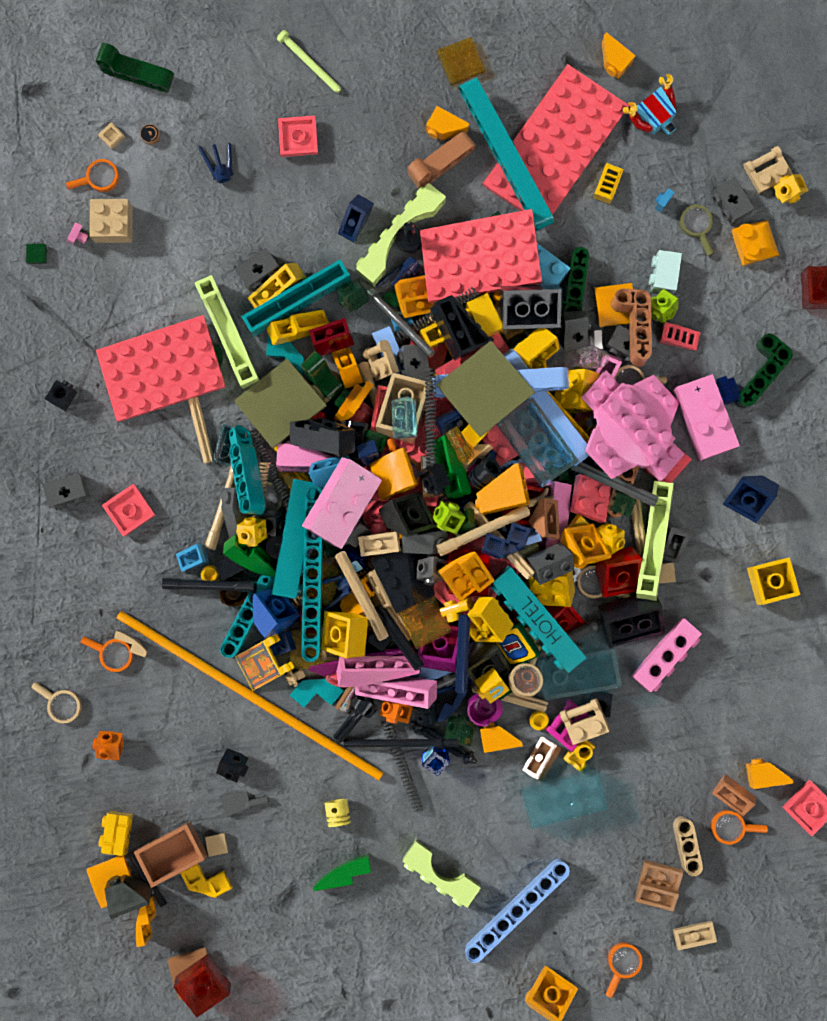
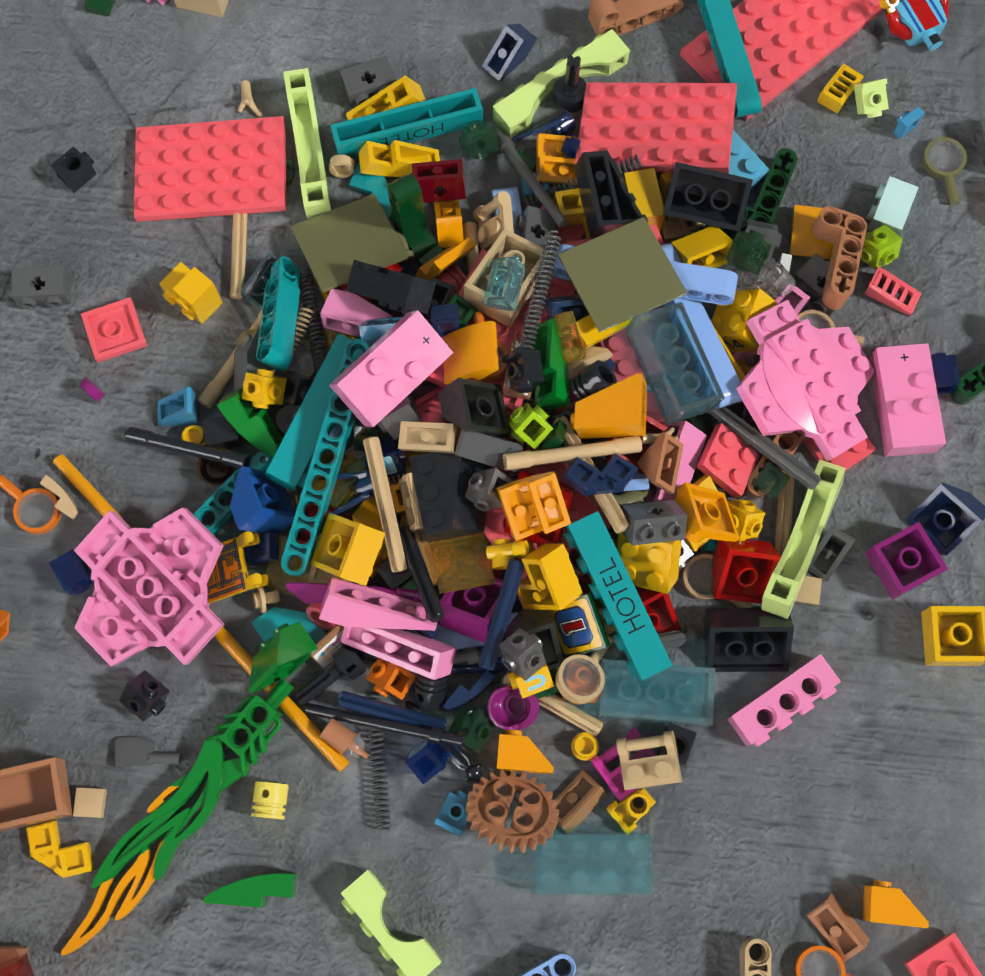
camera: 10 degrees right, 10 degrees down
(127, 558) = (92, 389): none -> magenta tile
(156, 693) = (72, 573): none -> clear blue brick
(171, 307) = (247, 98): none -> tan bar
(176, 468) = (191, 292): none -> yellow brick
(213, 691) = (149, 587): none -> bright pink plate
(256, 342) = (341, 166): none -> tan tile
(300, 805) = (162, 819): none -> green piece
(317, 715) = (280, 656): none -> green slope
(375, 759) = (344, 740): none -> nougat piece
(402, 733) = (388, 711): none -> dark blue axle
(421, 285) = (570, 147): none -> clear blue plate
(464, 796) = (446, 820): none -> dark azure brick
(483, 677) = (522, 654): none -> flat silver brick
(521, 779) = (533, 817): none -> nougat gear
(570, 341) = (748, 251): none -> clear green brick
(629, 183) = (864, 93): none -> yellowish green brick
(728, 536) = (905, 560): none -> magenta brick

